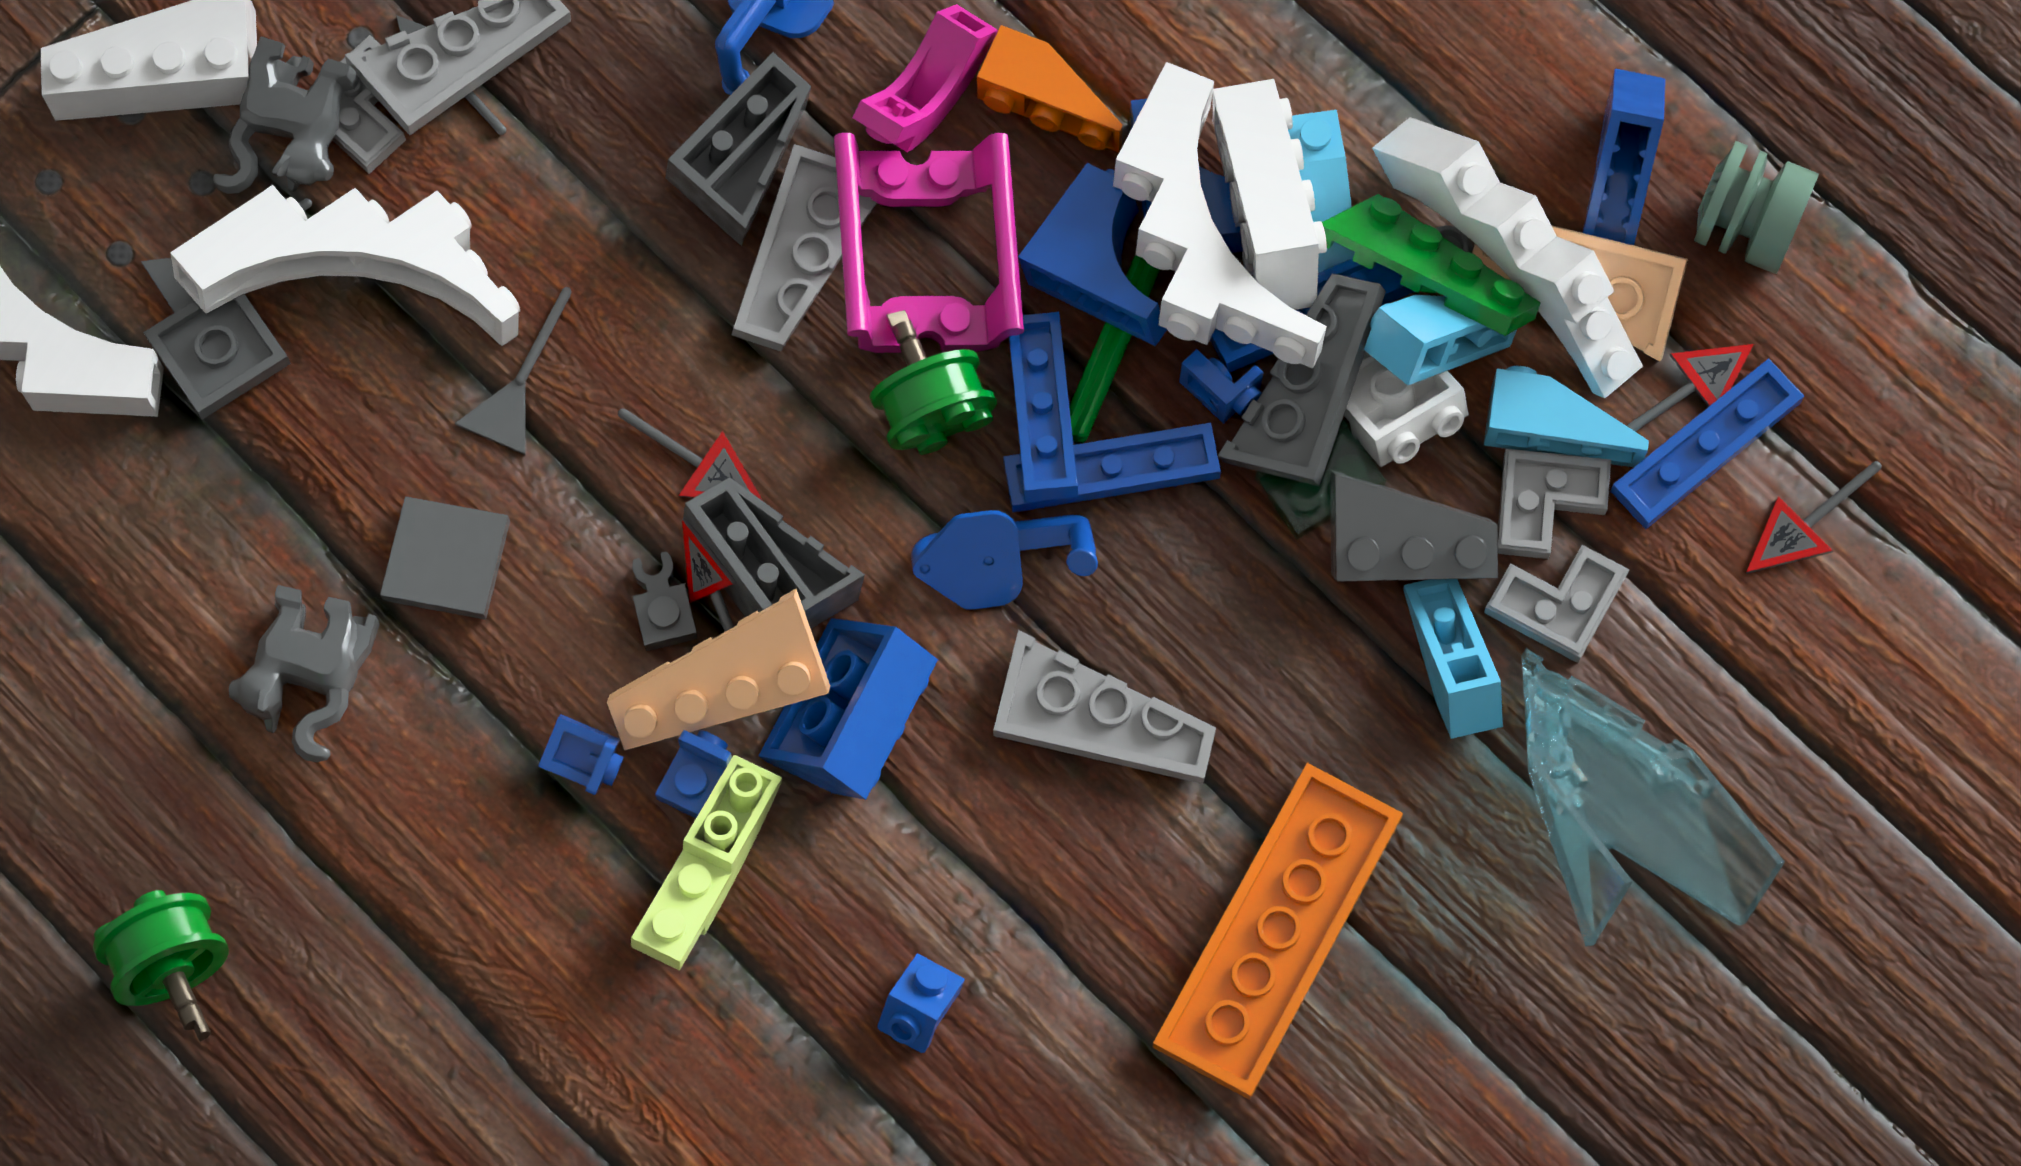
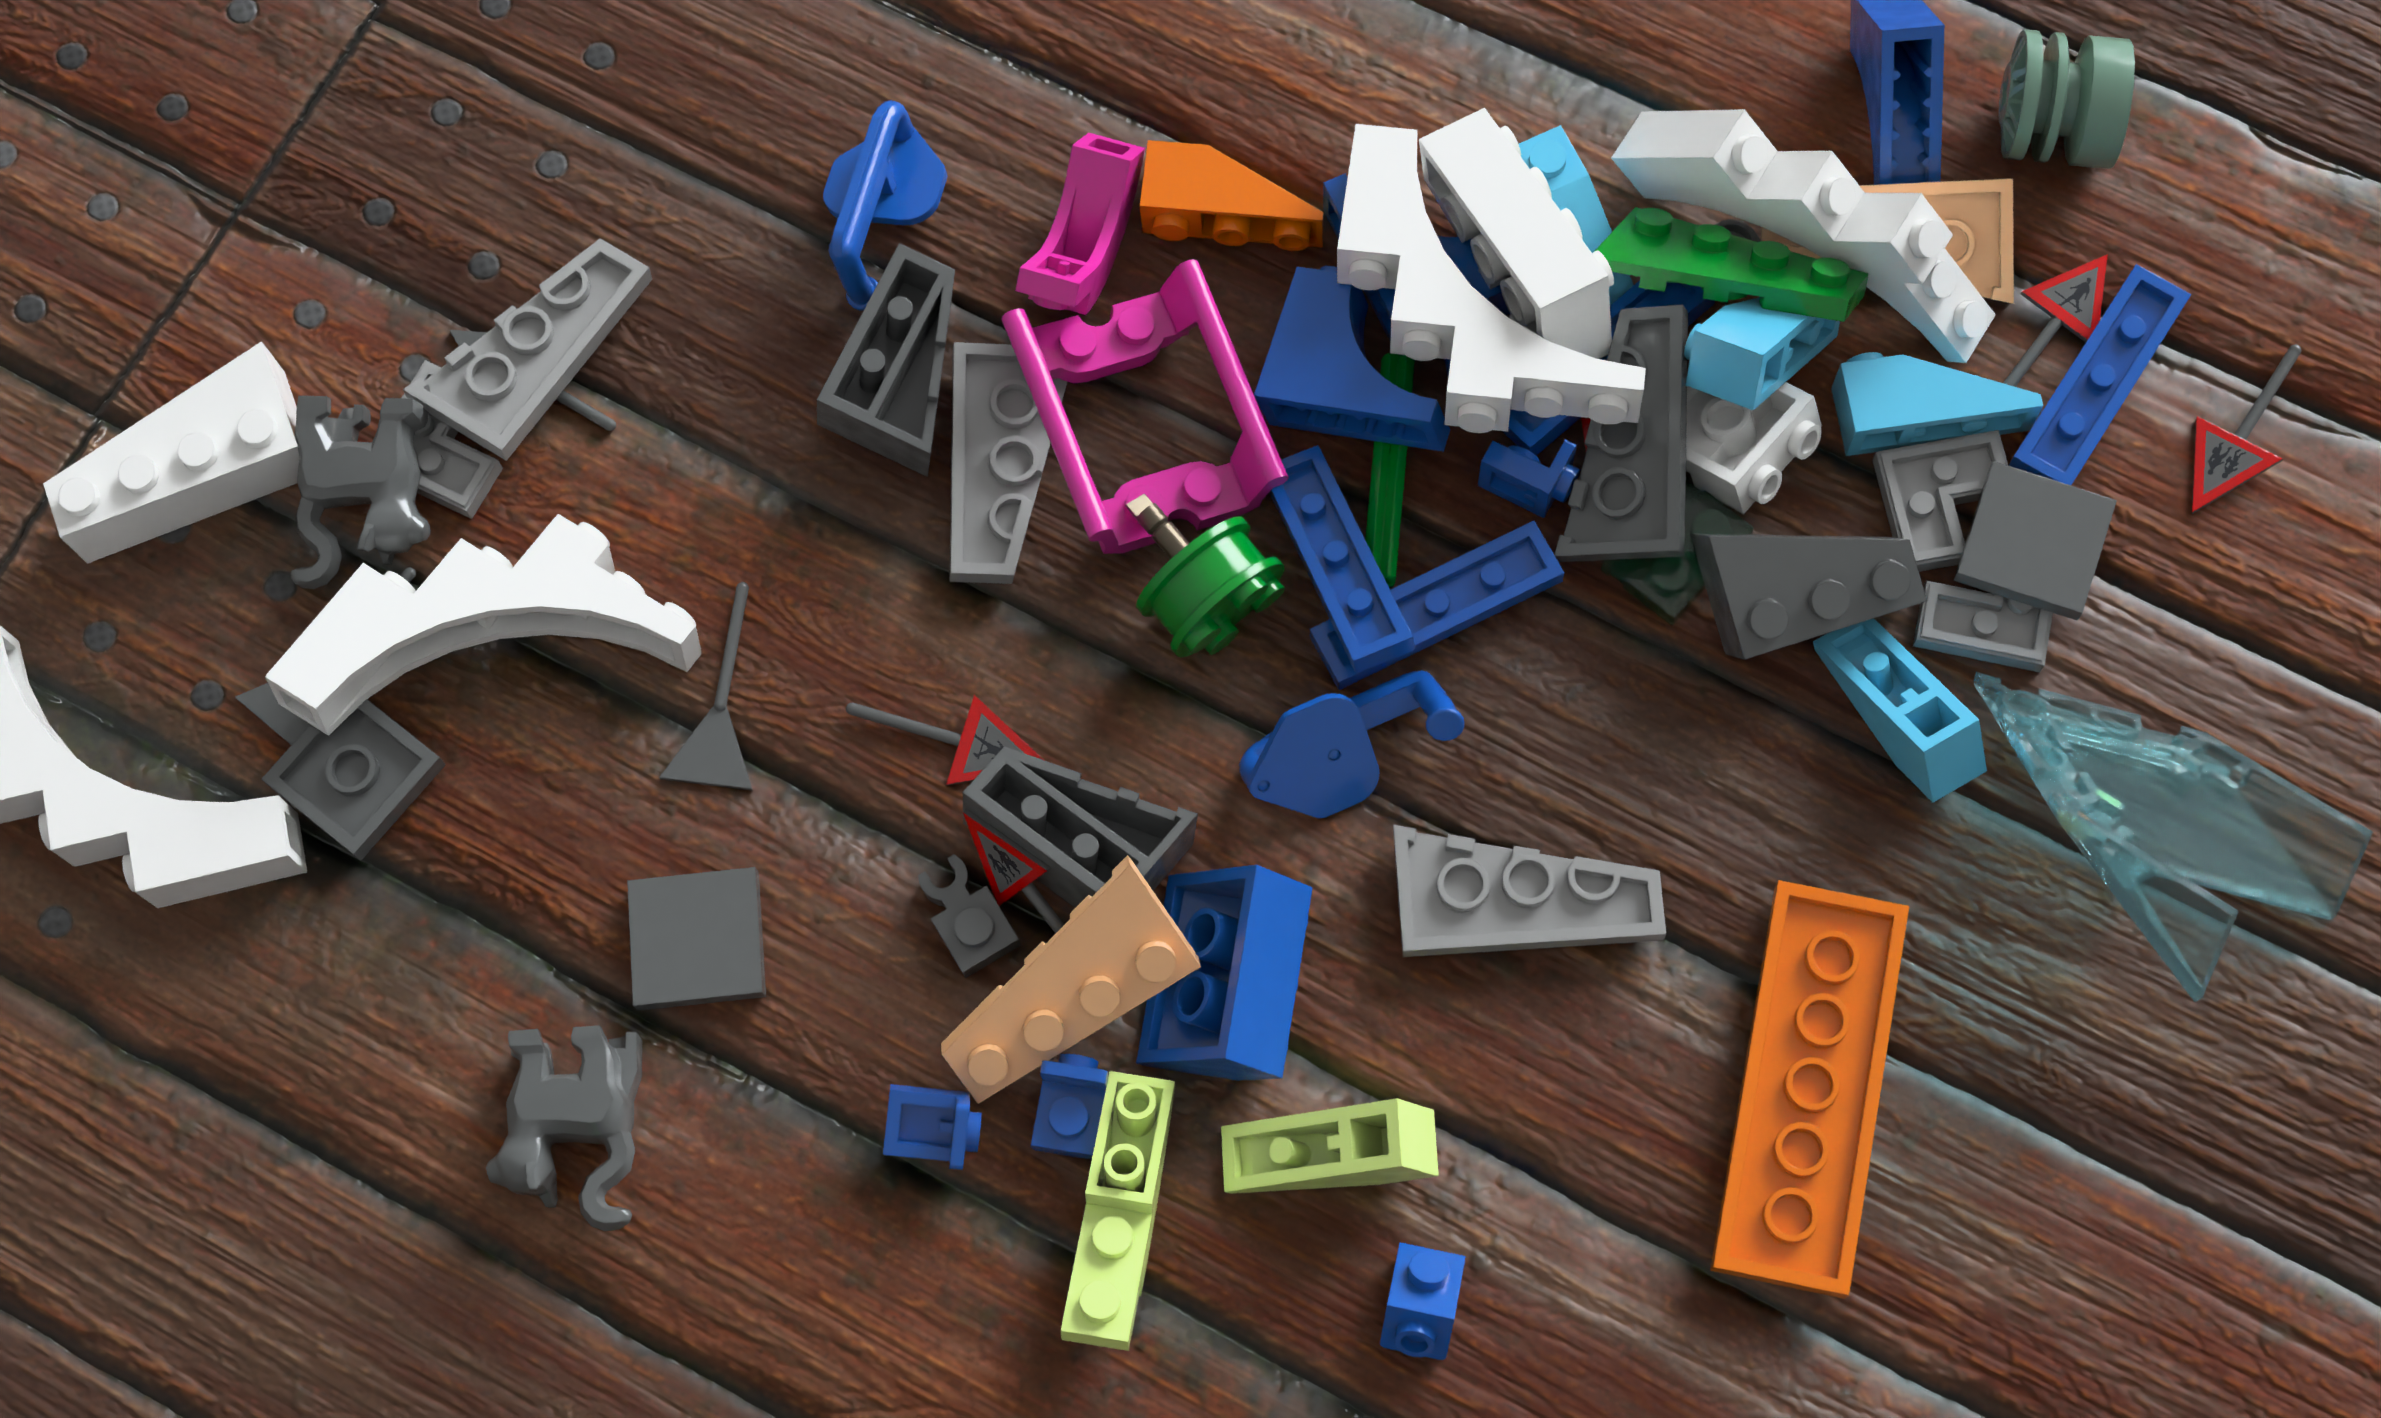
camera: 10 degrees left, 0 degrees up
(888, 865) = (1331, 1148): none -> yellowish green slope
(1605, 556) = (2035, 540): none -> dark grey tile

